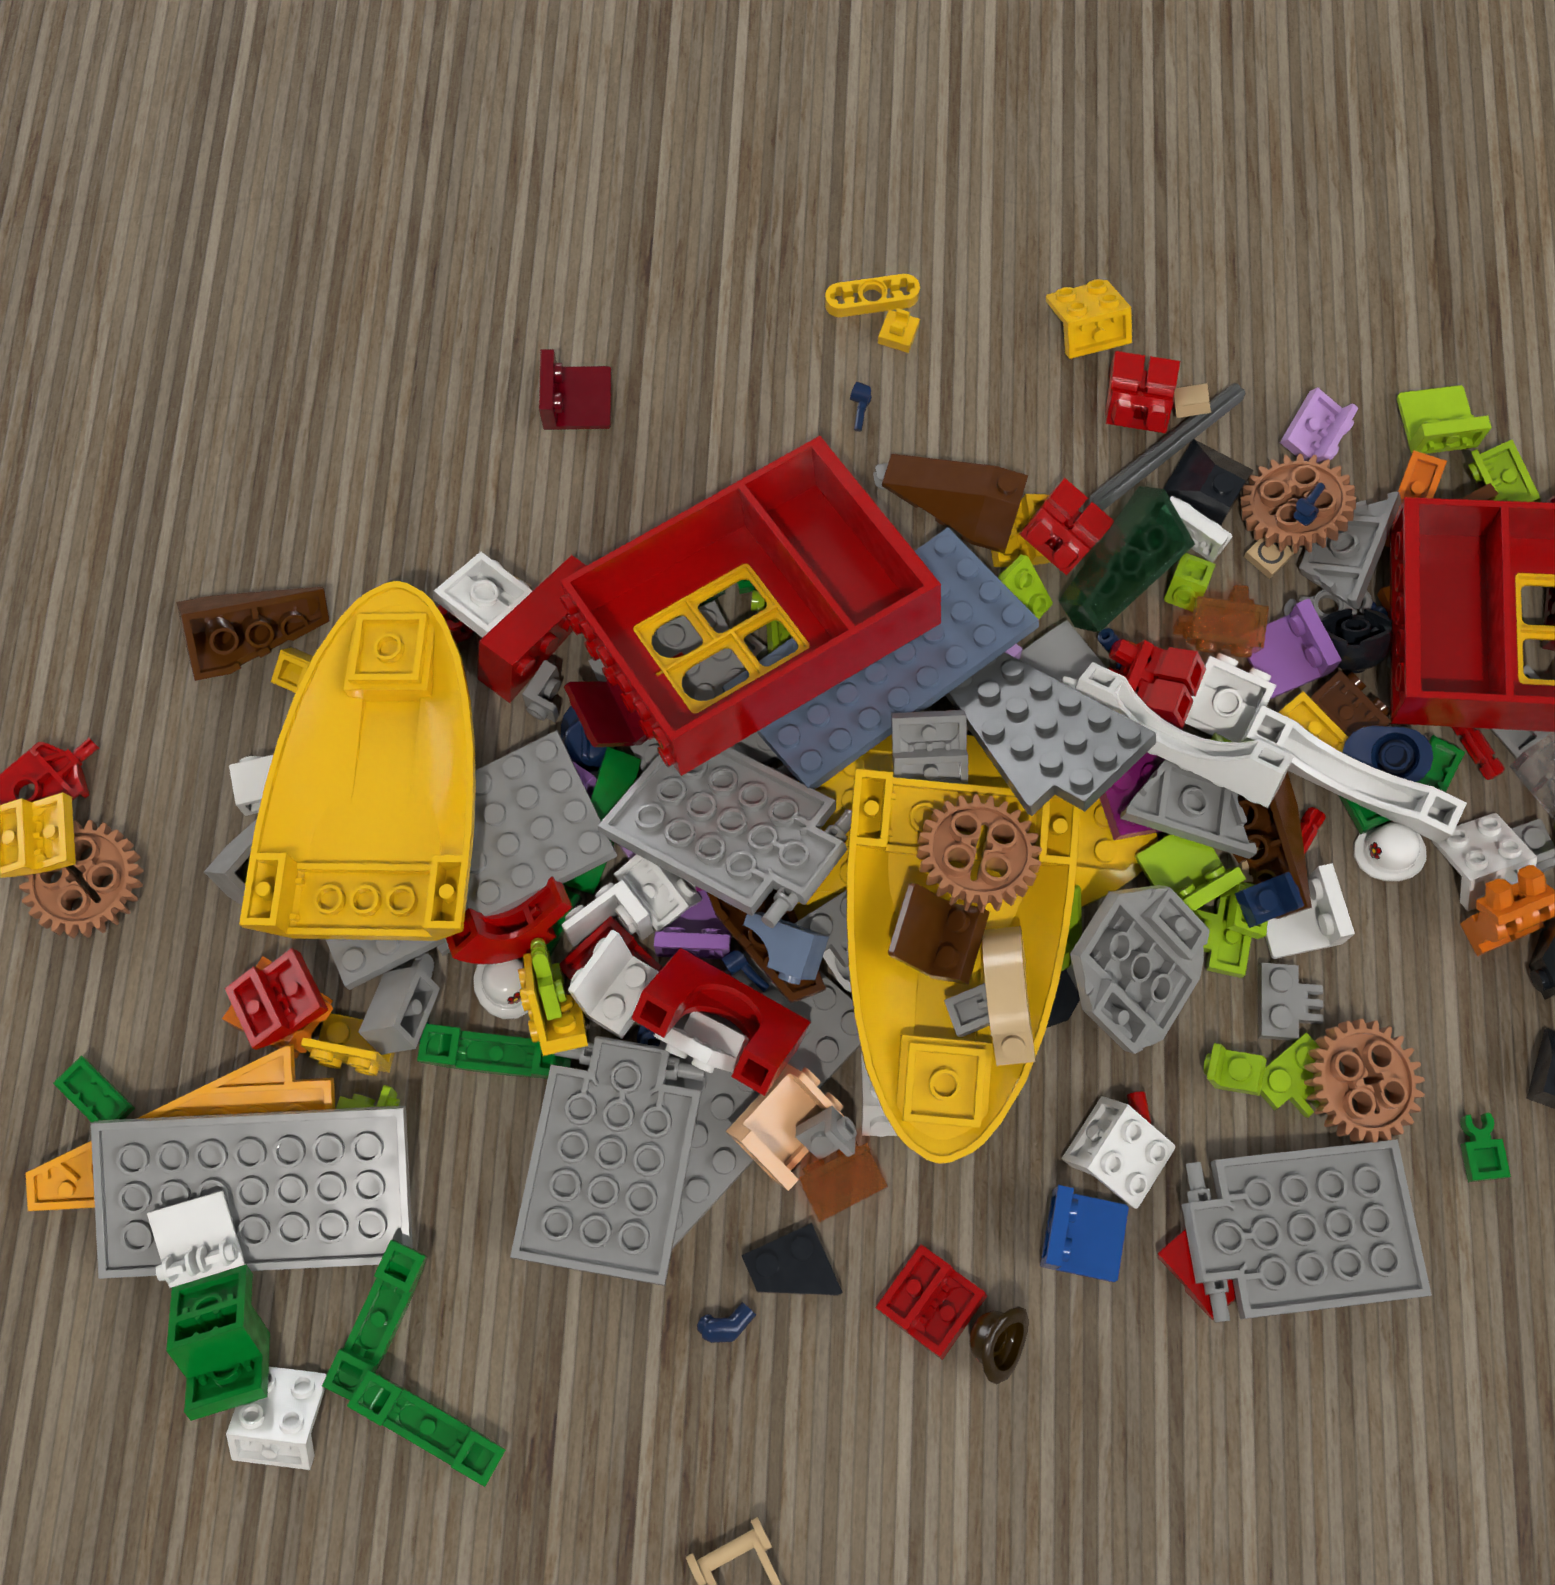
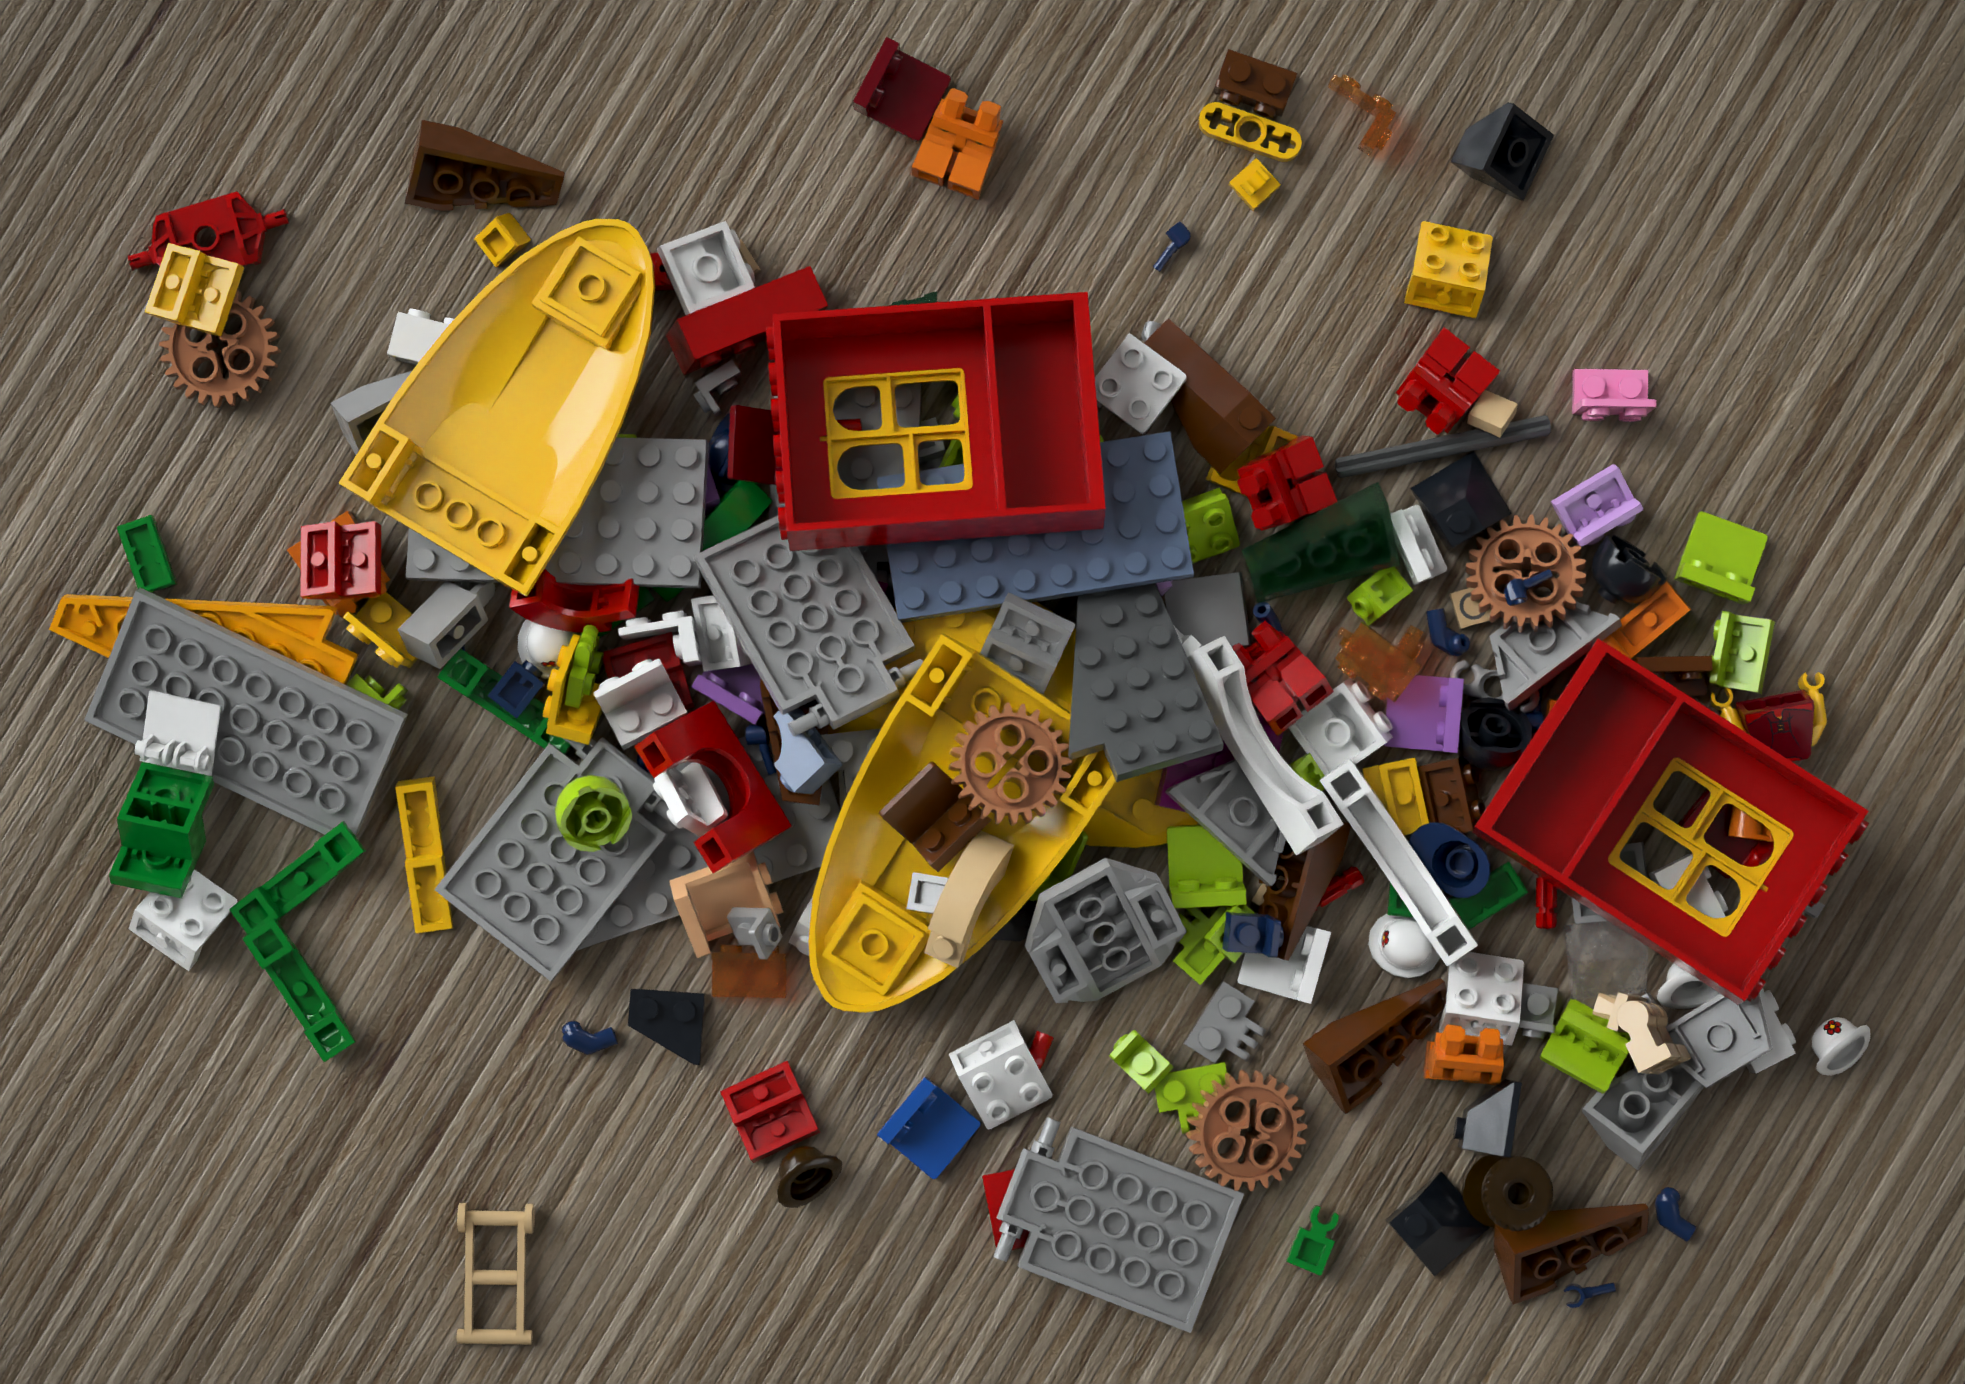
camera: 30 degrees right, 15 degrees up
(485, 1235) = (423, 853): none -> yellow slope
(496, 1033) = (517, 687): none -> dark blue bracket
(624, 1100) = (592, 813): none -> lime cylinder
(645, 411) = (965, 131): none -> orange hips
(855, 259) = (1254, 84): none -> reddish brown bracket
(905, 504) = (1137, 384): none -> white bracket
(952, 229) = (1378, 133): none -> clear orange bracket
(1076, 212) = (1504, 150): none -> black slope
(1263, 590) = (1443, 637): none -> dark blue arm
(1276, 342) = (1611, 392): none -> bright pink bracket
(1375, 463) = (1625, 572): none -> black cylinder
(1413, 951) = (1362, 1046): none -> reddish brown wedge

